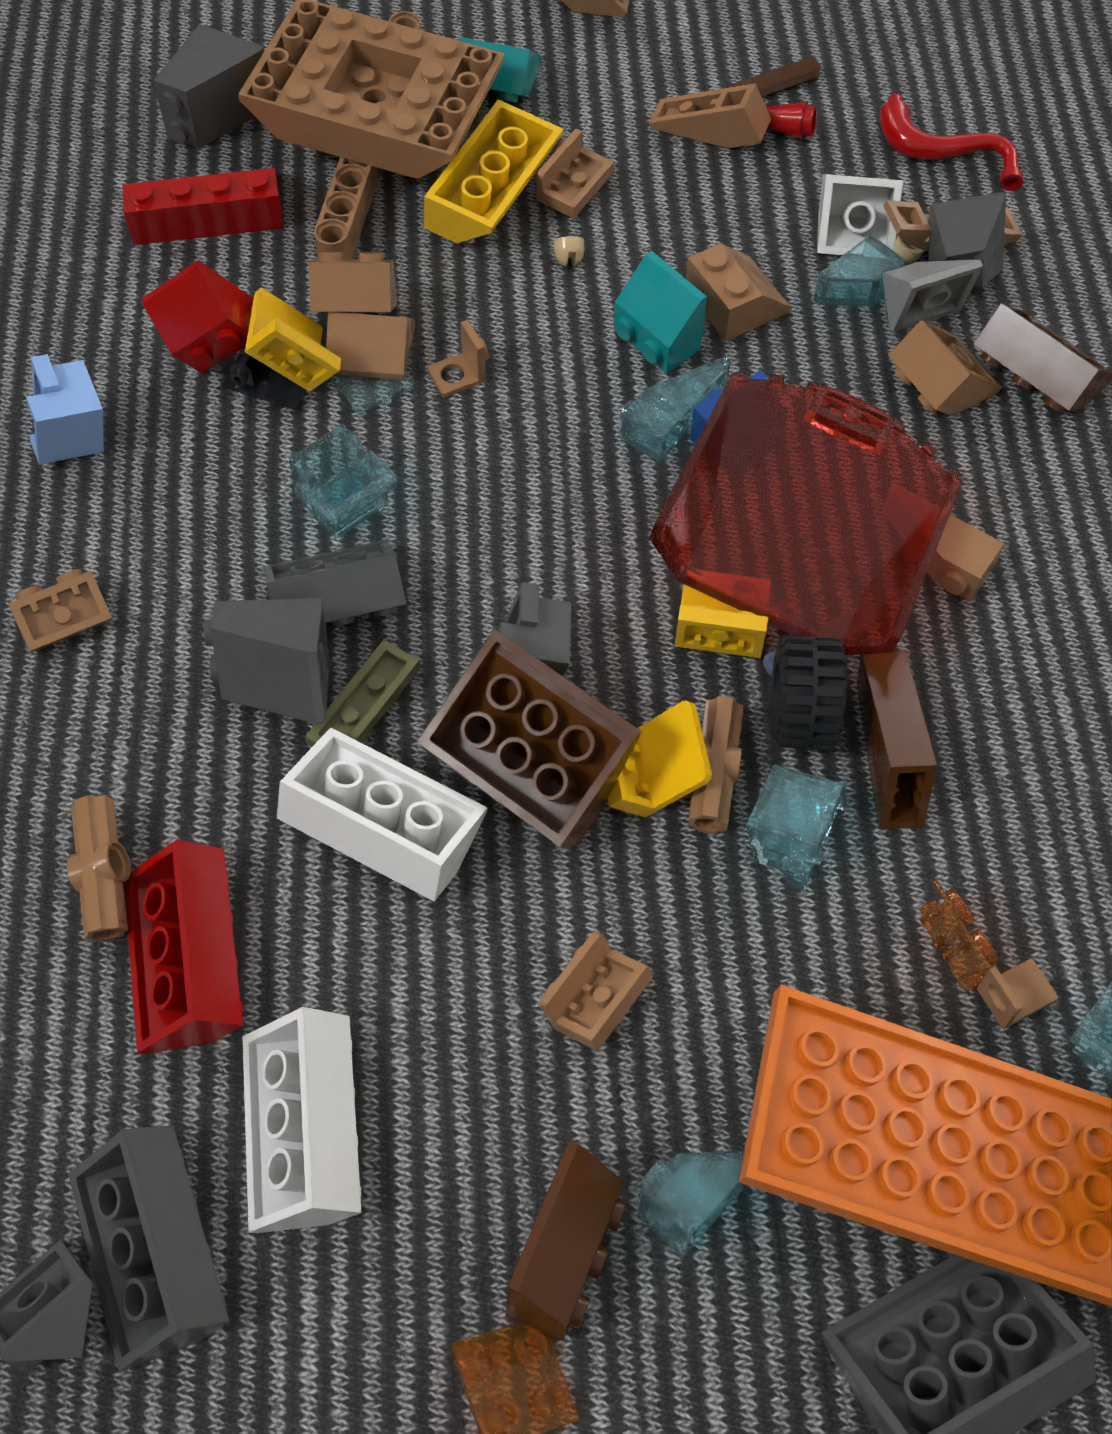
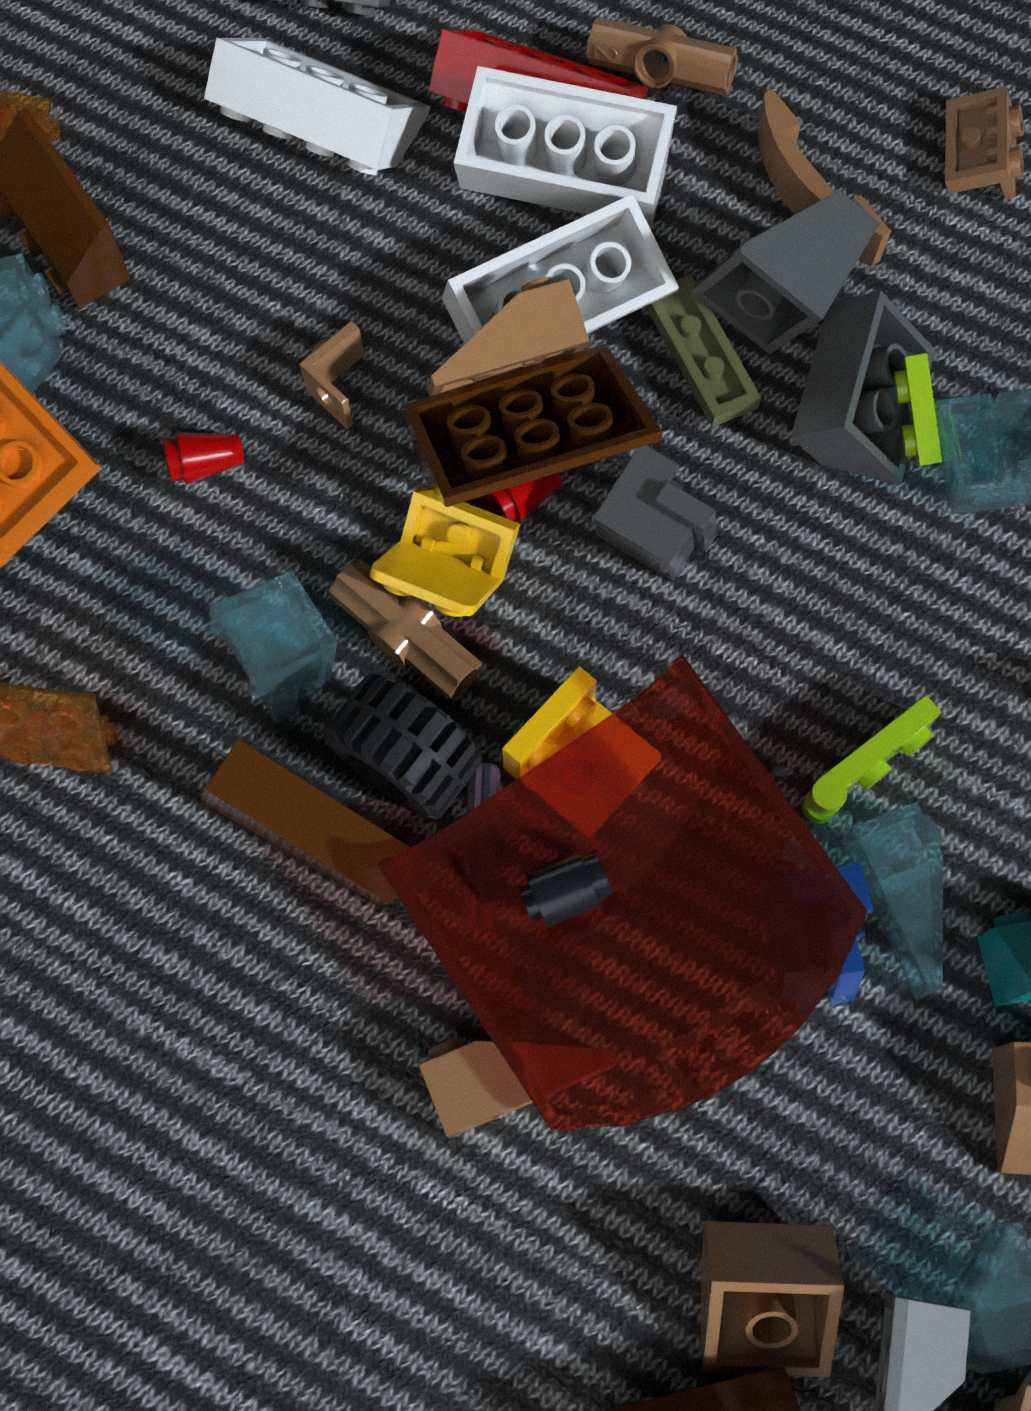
camera: 125 degrees right, 10 degrees up
(137, 745) = (795, 176): none -> medium nougat slope
(252, 872) = (562, 143): none -> white slope
(332, 535) = (915, 388): none -> lime plate
(465, 793) = (527, 331): none -> medium nougat slope
(546, 947) = (326, 363): none -> medium nougat bracket
(594, 992) = (254, 376): medium nougat bracket -> none
(606, 461) = (869, 761): none -> lime plate
(686, 990) = (201, 455): none -> red cone
(822, 551) = (565, 887): none -> black brick

